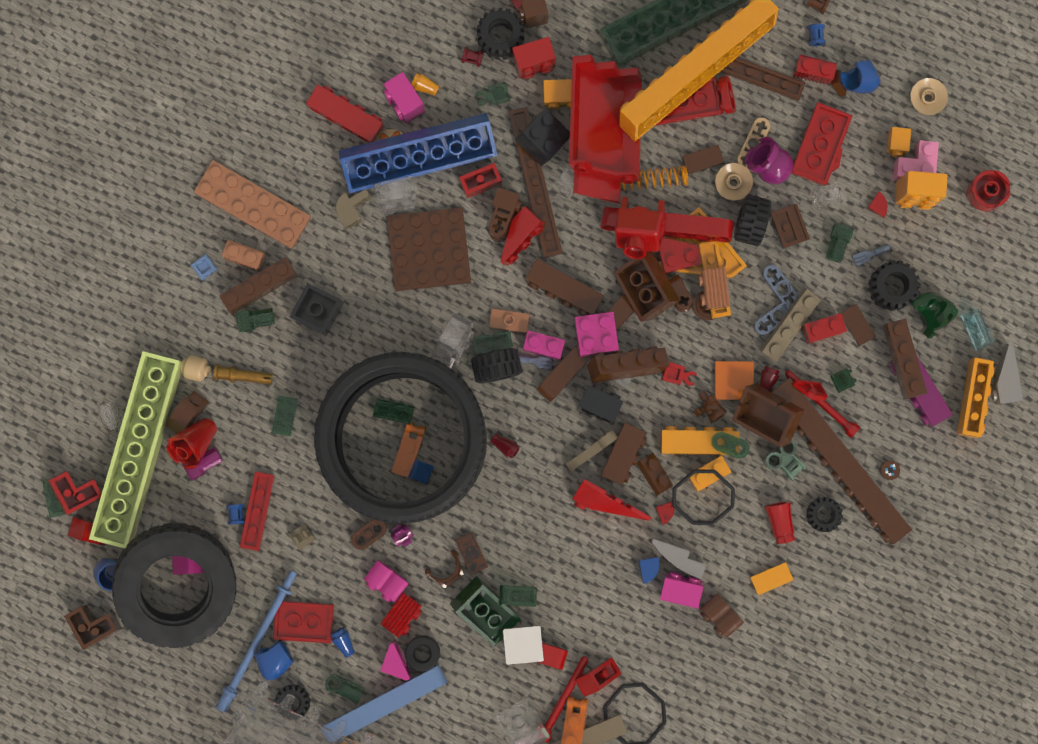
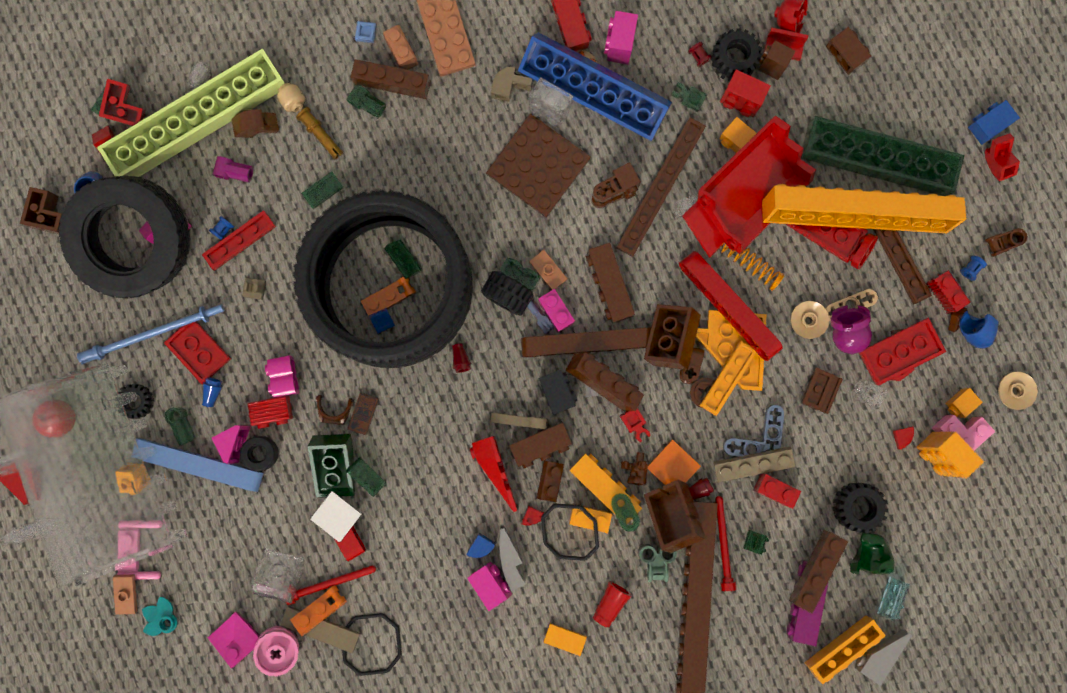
camera: 45 degrees right, 0 degrees up
(191, 443) = (236, 146): red cone -> none
(273, 660) = (149, 358): blue piece -> none
(316, 309) = (415, 133): black brick -> none
(369, 534) = (302, 333): reddish brown plate -> none
(401, 535) = (324, 354): magenta gear -> none
(424, 84) = (645, 43): light orange cone -> none
(453, 341) = (491, 246): clear brick -> none
(480, 180) = (621, 148): red brick -> none
(521, 231) = (618, 212): red slope -> none
(543, 136) = (697, 157): black brick -> none
(596, 334) = (601, 337): dark pink brick -> none
(598, 677) = (369, 592): red slope -> none
(639, 229) = (706, 288): red piece -> none
(678, 255) = (717, 335): red wing -> none
(703, 159) = (801, 283): reddish brown tile -> none
(715, 288) = (722, 385): nougat brick -> none
(721, 615) = (501, 632): reddish brown brick -> none
(752, 220) = (798, 360): black tyre -> none
(811, 389) = (725, 527): red tile -> none
(835, 510) = (653, 640): black tyre -> none
(839, 239) = (849, 435): clear green piece -> none
(857, 325) = (804, 511): reddish brown tile -> none
(865, 256) = (857, 465): sand blue piece -> none
(889, 470) = (728, 642): reddish brown tile -> none
(999, 193) = (1010, 499): red brick -> none

